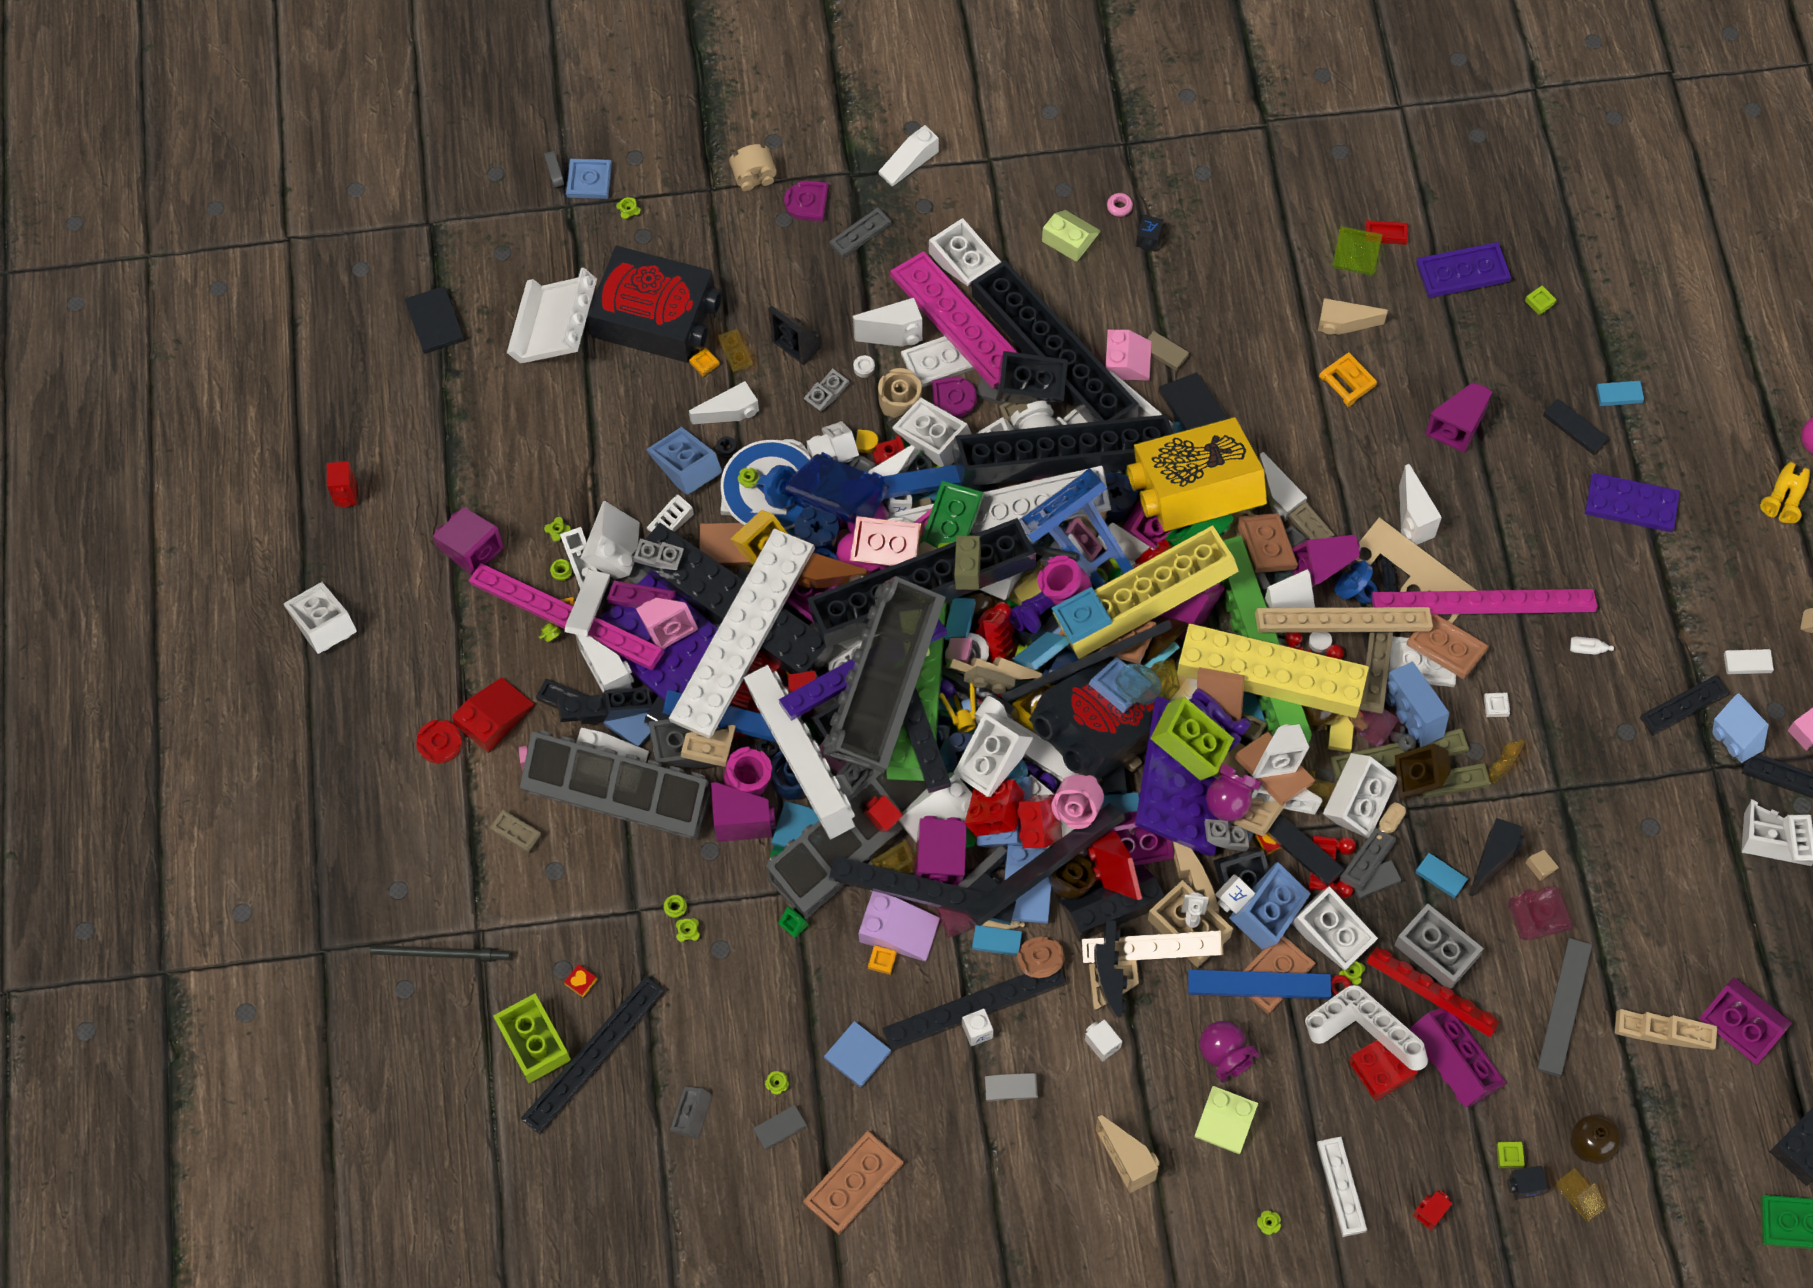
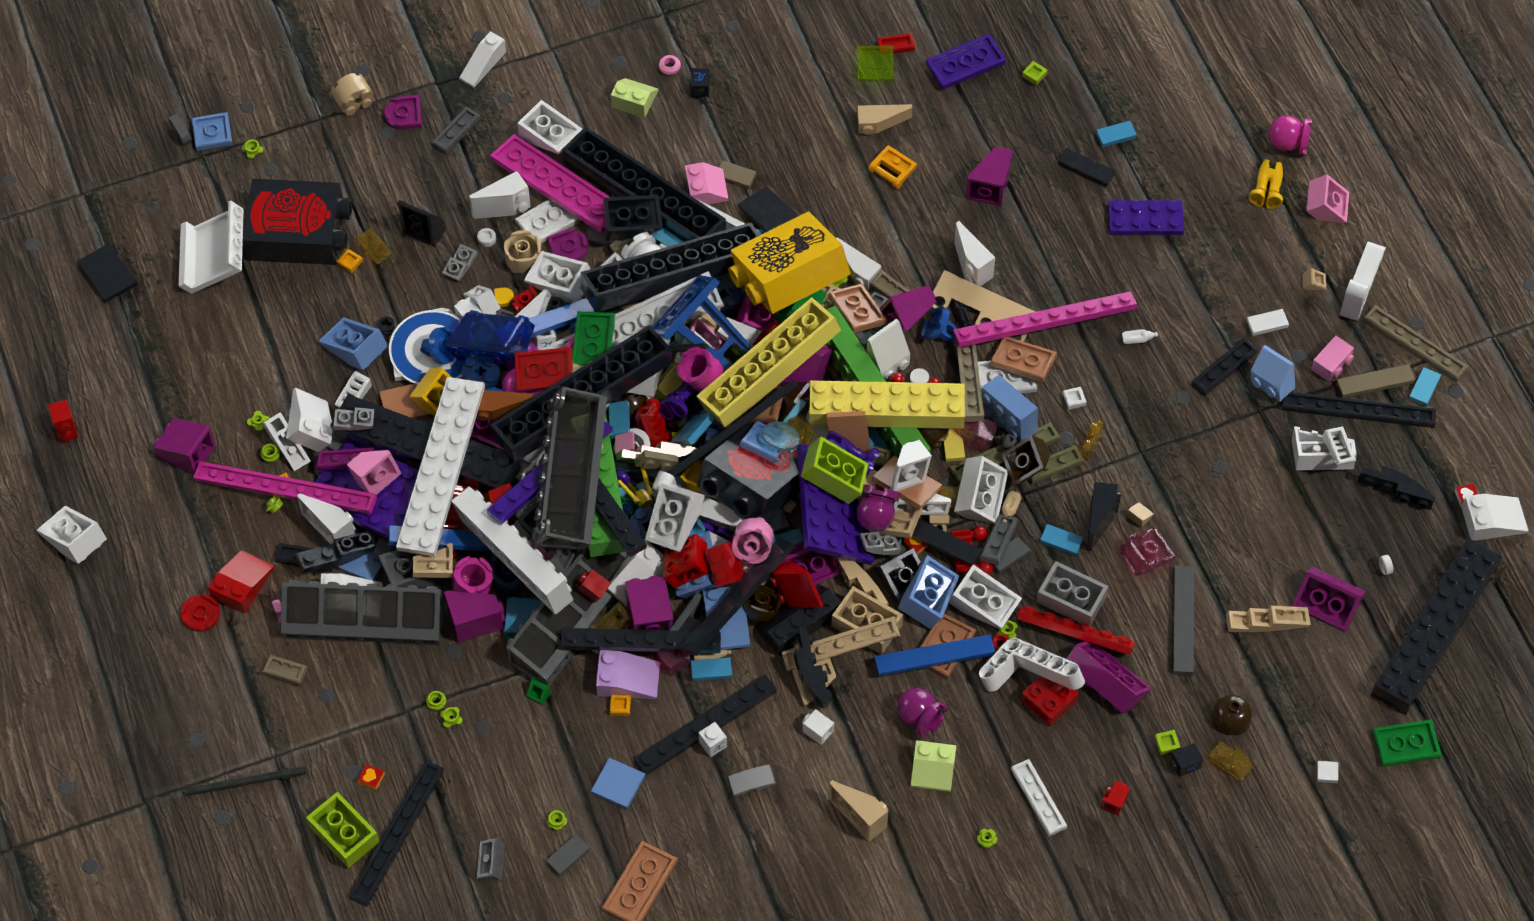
camera: 15 degrees left, 5 degrees down
(587, 603) = (301, 472): white tile -> none
(726, 407) = (379, 292): white slope -> none
(751, 482) = (412, 349): lime plate -> none
(967, 562) = (617, 367): olive brick -> none
(1040, 957) = (751, 673): nougat tile -> none
(1068, 412) = (666, 237): none -> medium azure tile
(1081, 615) = (721, 391): dark azure tile -> none
(1194, 906) = (868, 603): white hinge -> none
(1234, 895) = (898, 588): white brick -> none
(1303, 819) = (939, 520): none -> tan tile
(1343, 619) = (934, 354): tan plate -> none
(1694, 1236) = (1327, 772): none -> white tile

